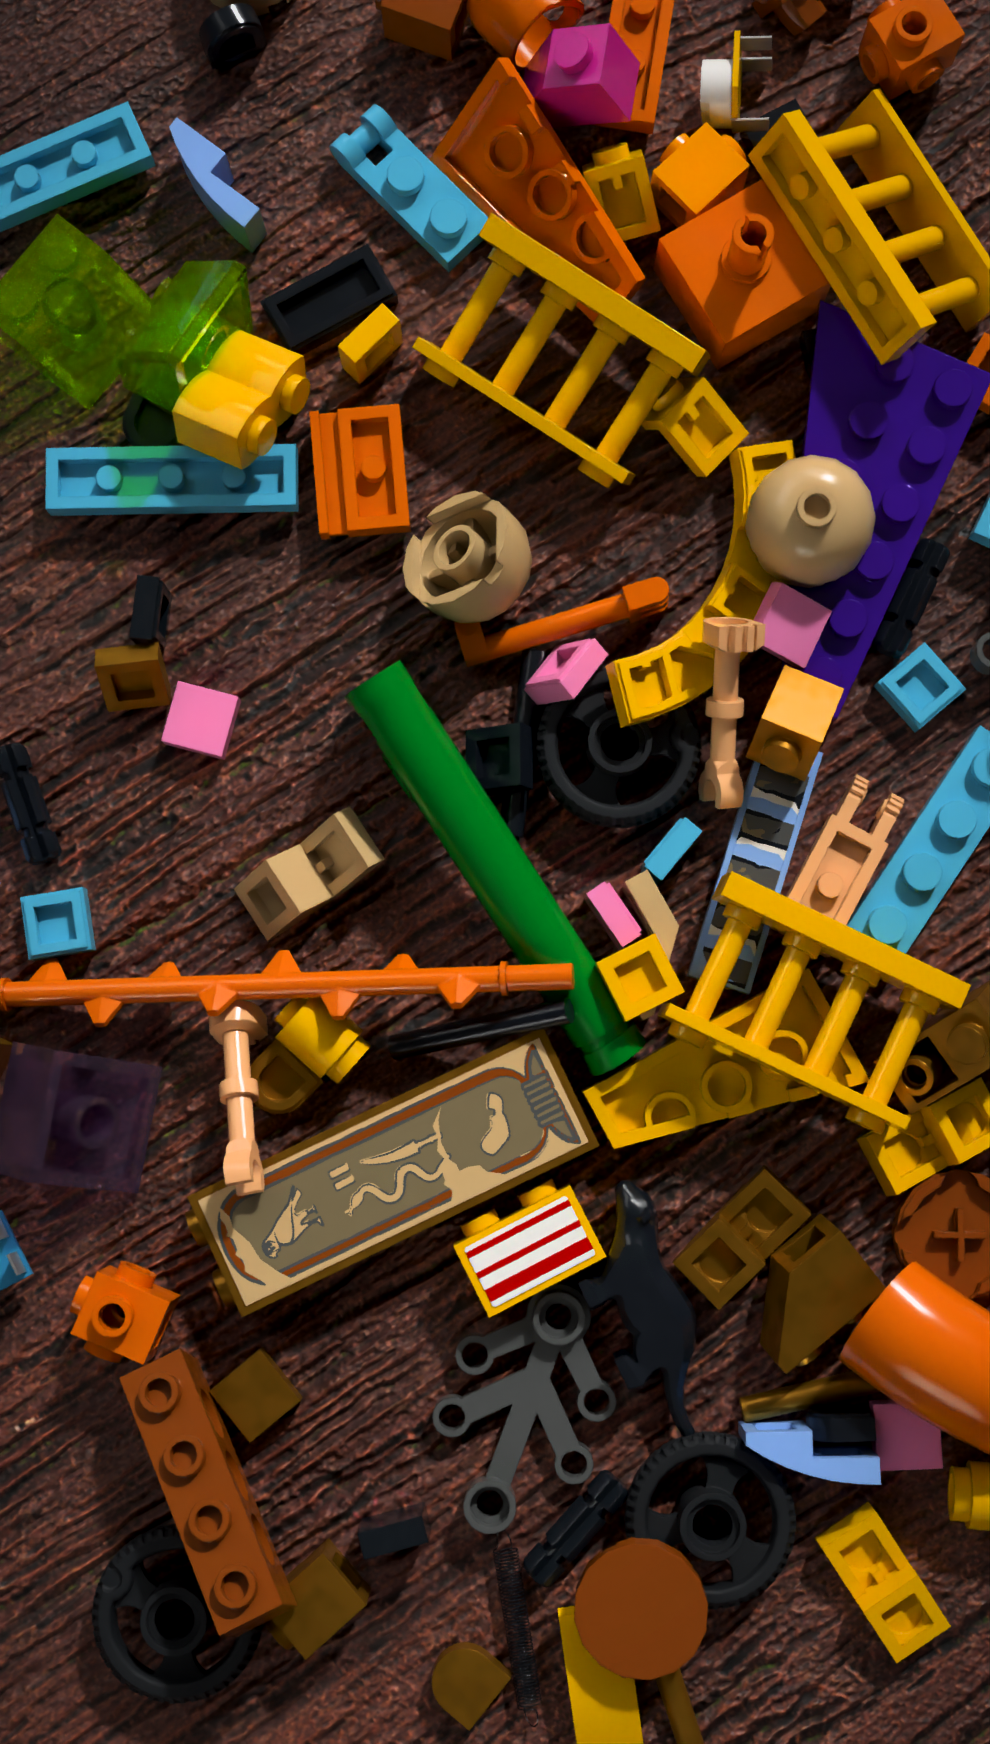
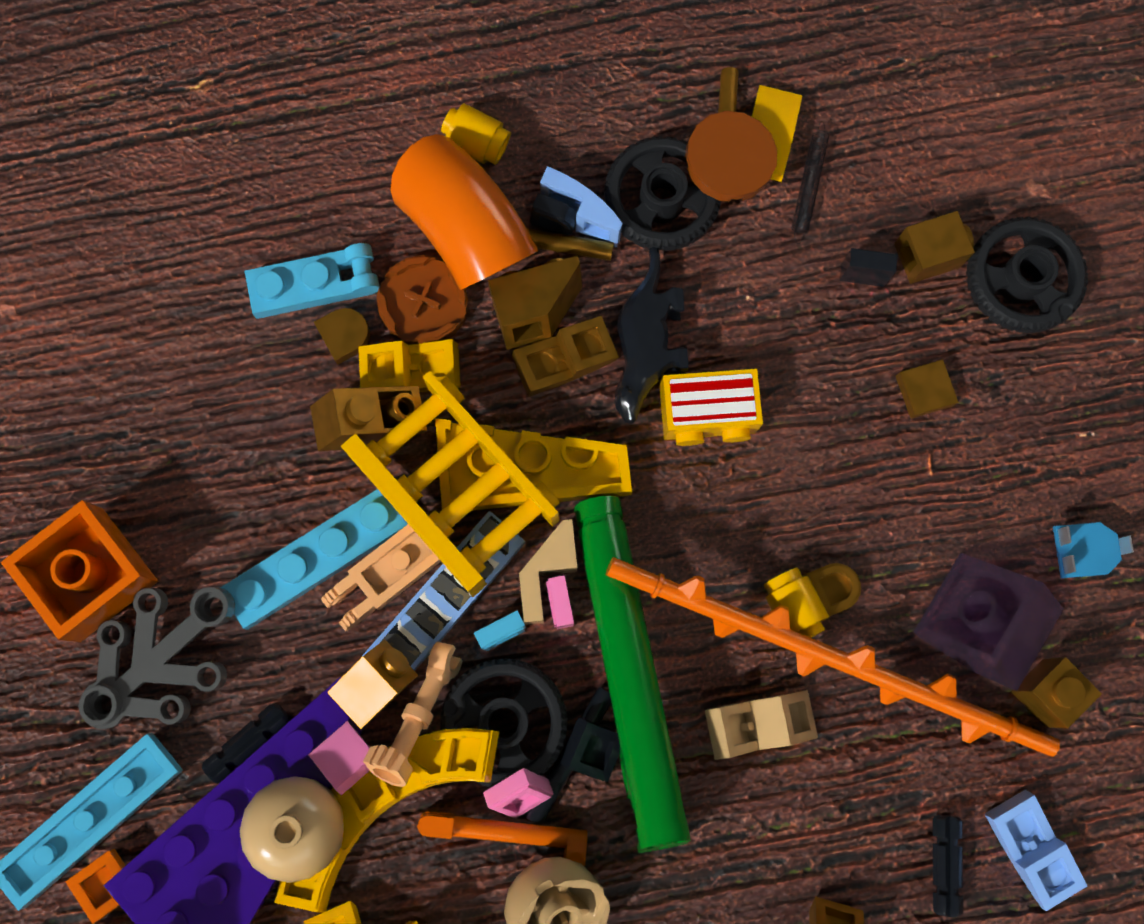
camera: 165 degrees left, 5 degrees down
(57, 923) = (953, 765): medium azure tile -> none
(145, 1310) = (1001, 474): orange brick -> none
(201, 720) = (796, 874): bright pink tile -> none
(208, 1494) = (986, 334): dark orange brick -> none
(236, 1030) = (886, 537): light nougat piece -> none
(392, 1173) = (783, 492): brick -> none
(467, 1681) = (854, 163): pearl gold tile -> none
(481, 1028) = (684, 561): black bar -> none
(530, 1394) = (747, 316): dark grey plant -> none
(575, 1528) = (749, 224): black axle -> none
(639, 977) = (562, 547): yellow tile -> none
(882, 1582) = (569, 116): yellow slope -> none
(904, 1438) = (519, 189): bright pink tile -> none
(919, 687) = (271, 675): medium azure tile -> none

